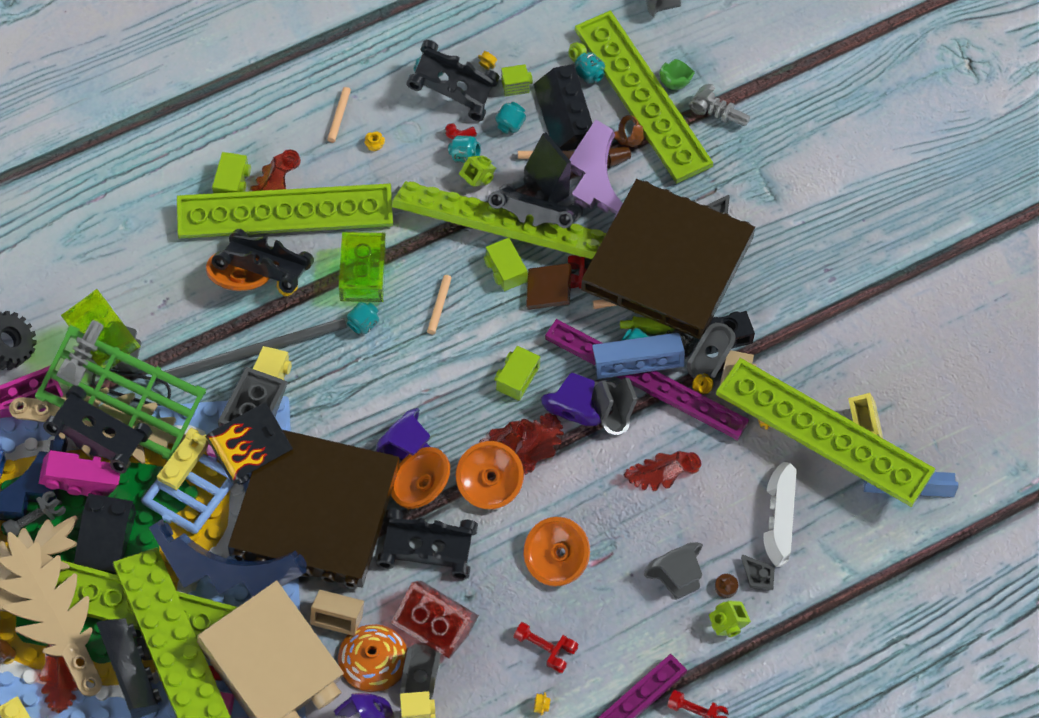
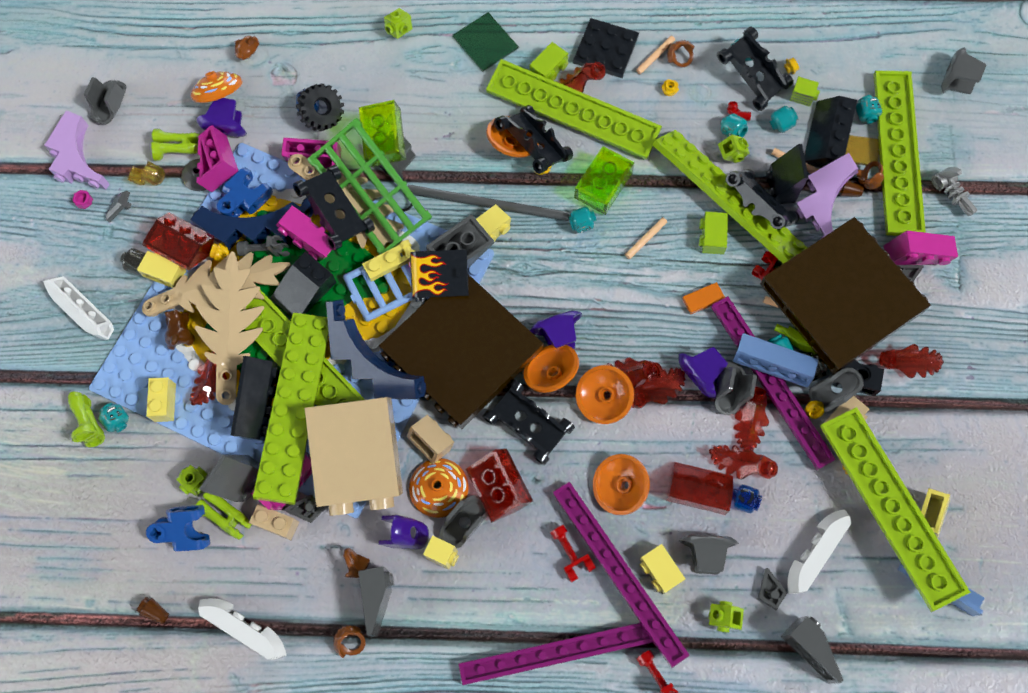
camera: 35 degrees right, 10 degrees up
(36, 211) = (398, 23): none -> lime brick
(73, 369) = (340, 152): light grey piece -> none
(144, 186) = (485, 41): none -> clear green piece
(281, 128) = (607, 45): none -> black plate
(370, 90) = (671, 54): none -> dark orange piece
(517, 373) = (674, 323): lime piece -> none
(532, 333) = (703, 298): none -> orange tile
(541, 703) = (541, 598): yellow plate -> none
(549, 286) = (737, 267): reddish brown tile -> none
(576, 50) = (865, 89): lime plate -> none
(605, 634) = (621, 575): none -> magenta plate
(607, 110) = (863, 149): none -> clear yellow piece
(636, 517) = (700, 488): none -> clear red slope
(643, 610) = (661, 569): none -> light yellow piece
(648, 424) = (751, 420): none -> clear red plant
(676, 74) = (935, 147): bright green hair -> none
(686, 501) = (746, 499): none -> clear blue head
(718, 178) = (922, 249): none -> dark pink wedge
(726, 585) = (740, 585): reddish brown tile -> none
(768, 290) = (912, 360): none -> clear red plant
(825, 600) = (813, 647): none -> dark grey slope

